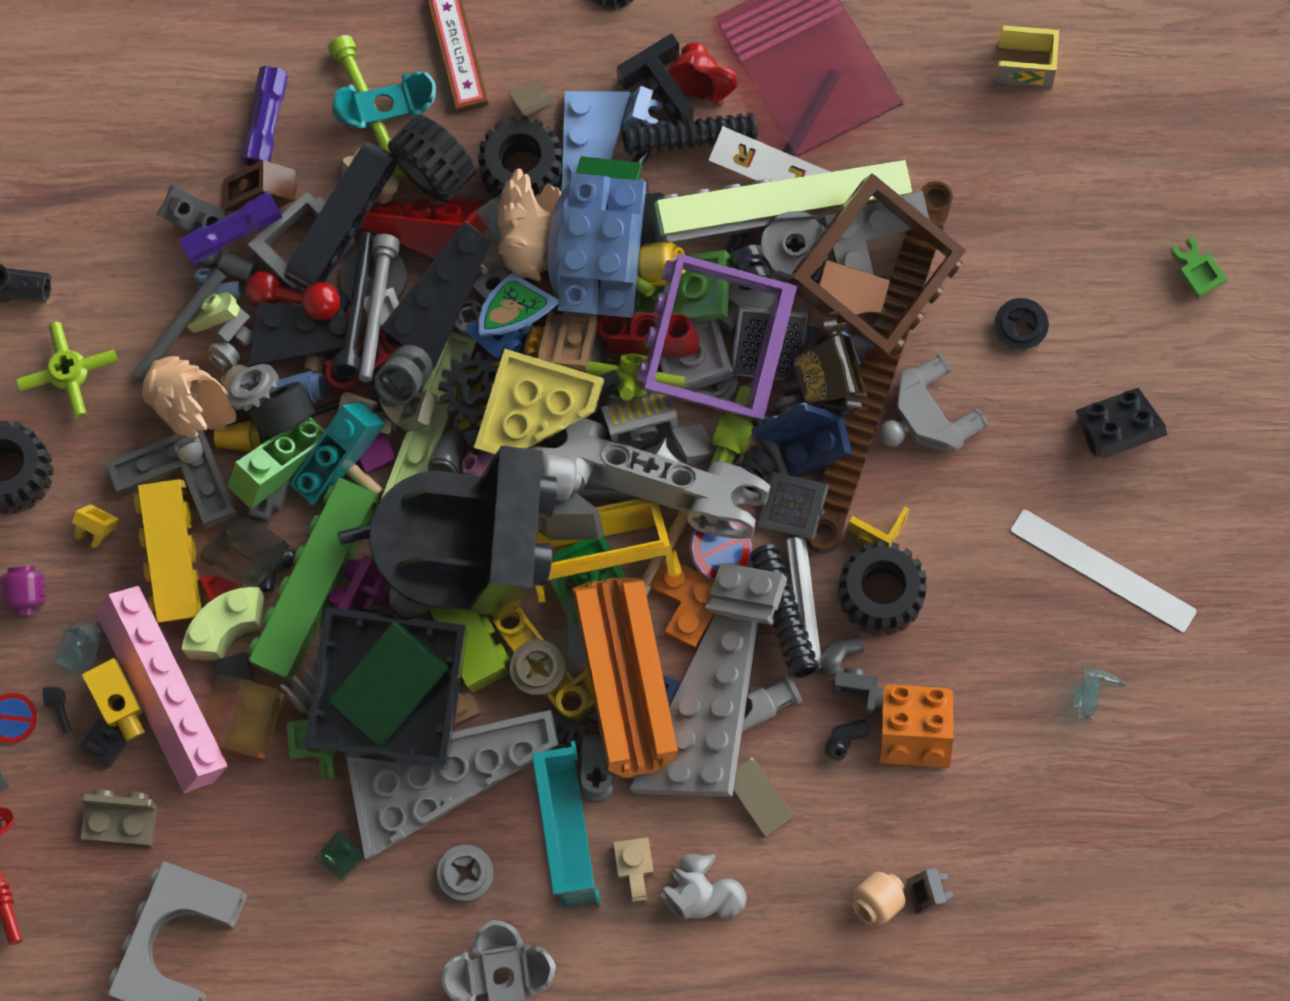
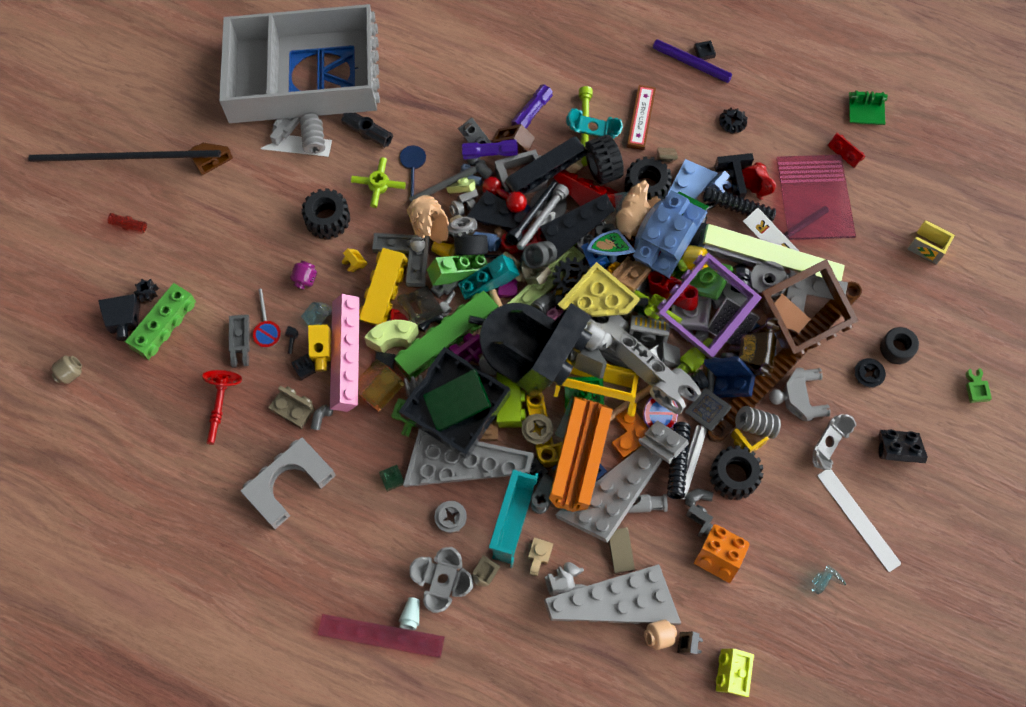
camera: 20 degrees right, 5 degrees down
(103, 298) = (412, 158): none -> dark blue piece
(170, 812) = (319, 414): none -> dark grey arm
(284, 531) = (445, 305): none -> light grey hand
(562, 933) = (485, 572): none -> dark tan plate
(799, 870) = (623, 599): none -> light grey wing
(841, 737) = (679, 540): black arm -> none
(880, 490) = (758, 422): none -> light grey piece
(1008, 439) = (838, 427): none -> light grey piece
(1016, 900) = (734, 672): none -> neon yellow bracket
(1053, 237) = (903, 335): none -> black tyre

